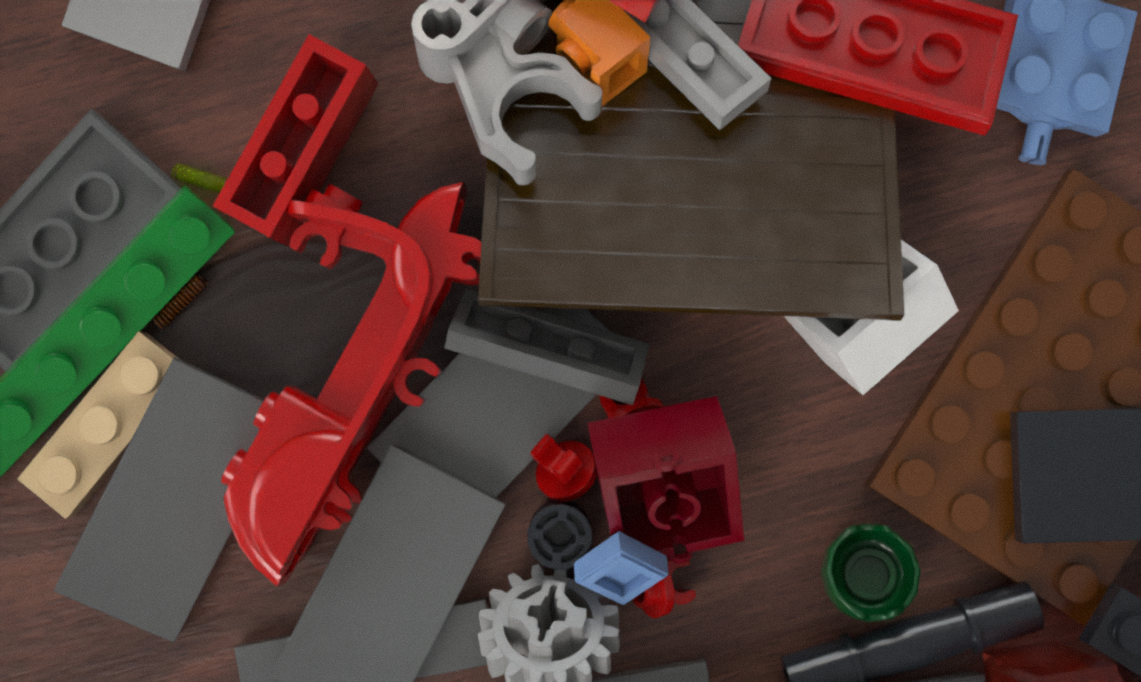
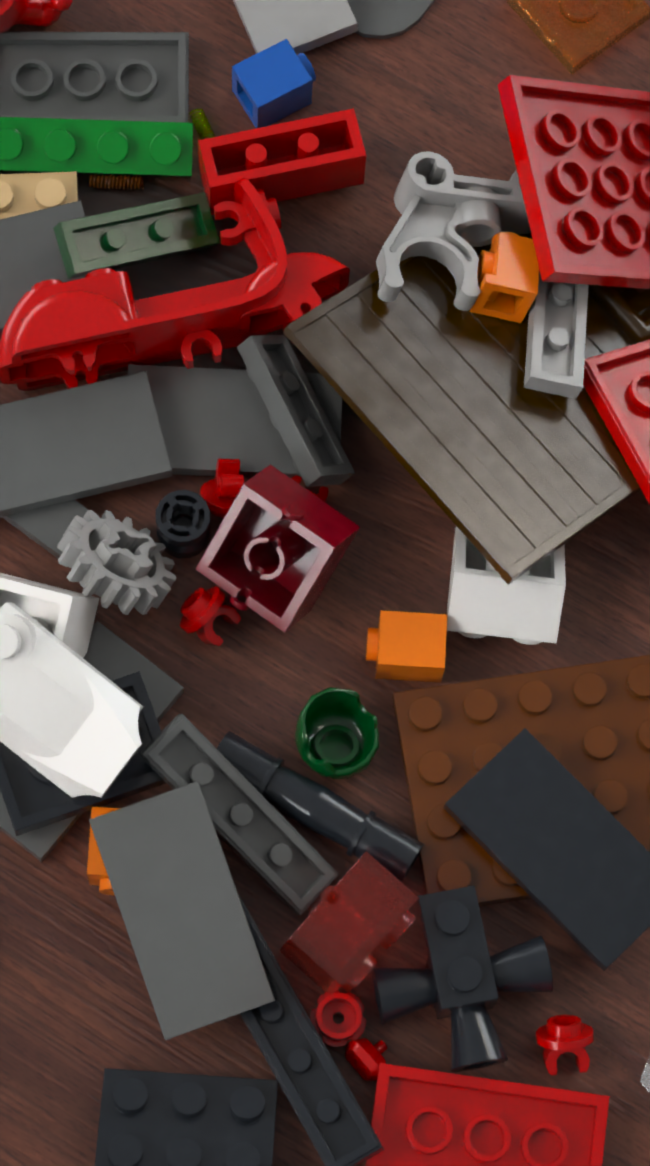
camera: 40 degrees right, 15 degrees down
(211, 77) = (273, 83): none -> blue brick
(251, 339) = (136, 235): none -> plate
(621, 568) = (197, 565): medium blue tile -> none
(844, 437) = (408, 646): none -> orange brick

